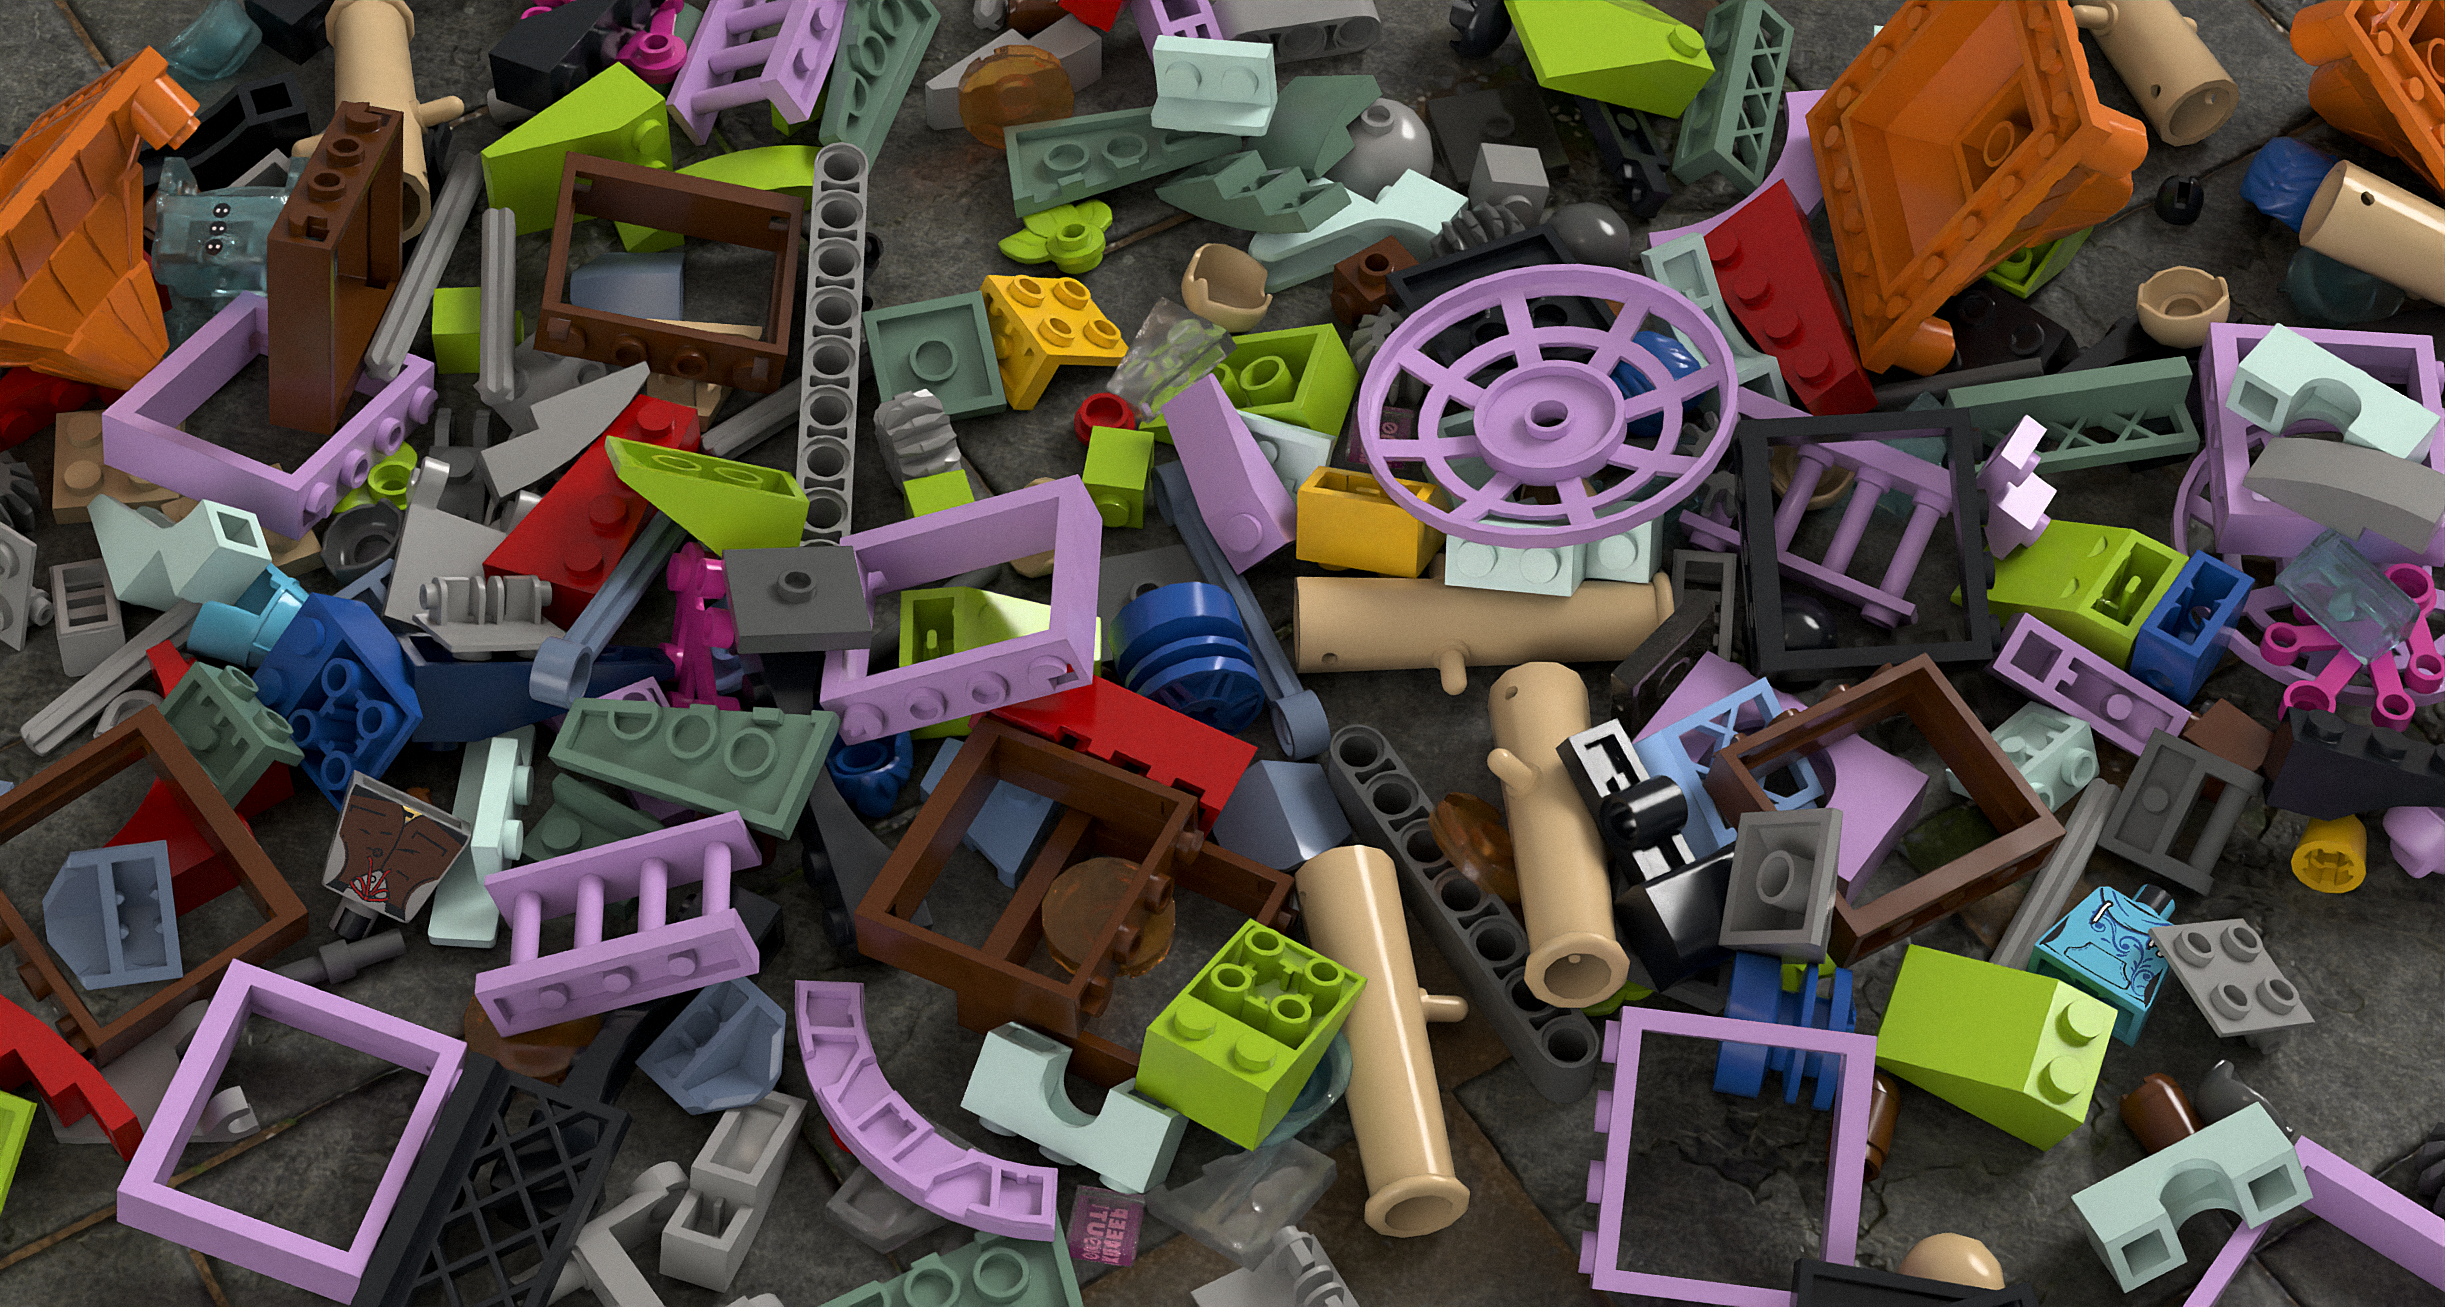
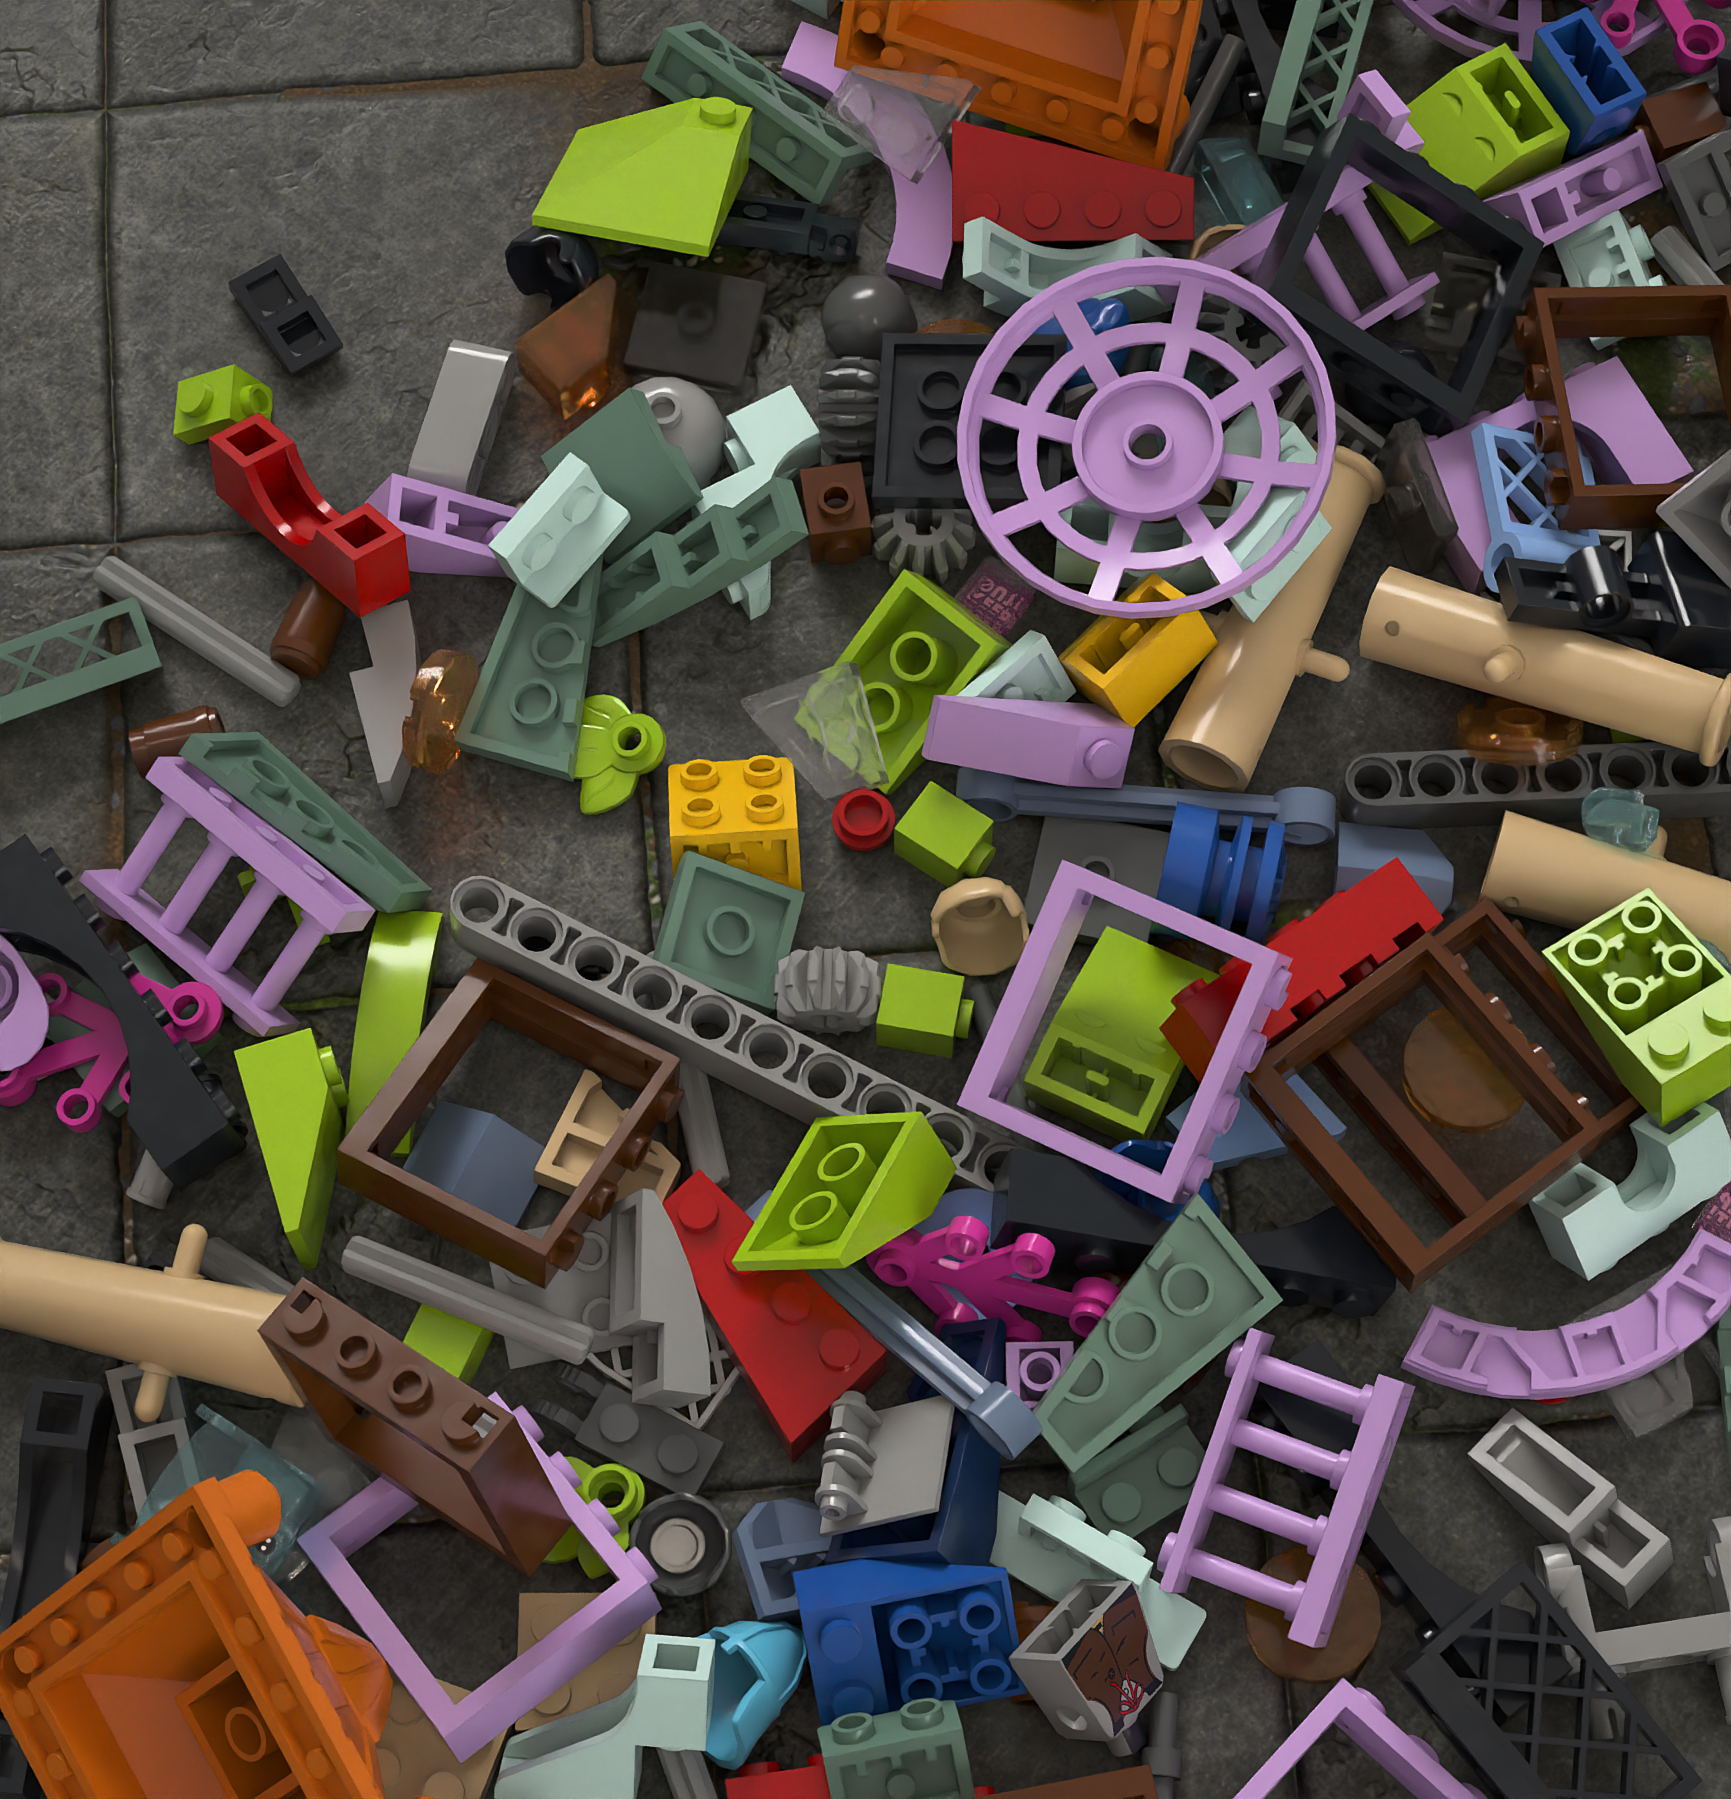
camera: 60 degrees left, 15 degrees up
(439, 542) = (745, 1472): light grey flag -> none
(720, 1049) = (1444, 1462): sand blue slope -> none
(795, 599) = (1054, 1171): dark grey plate -> none
(1226, 287) = (774, 643): tan hair -> none
(1421, 60) = (573, 349): none -> clear orange slope
(1434, 944) = (1620, 818): none -> clear light blue arm
(1512, 178) = (785, 347): light grey brick -> none
(1790, 152) = (899, 114): none -> clear wing

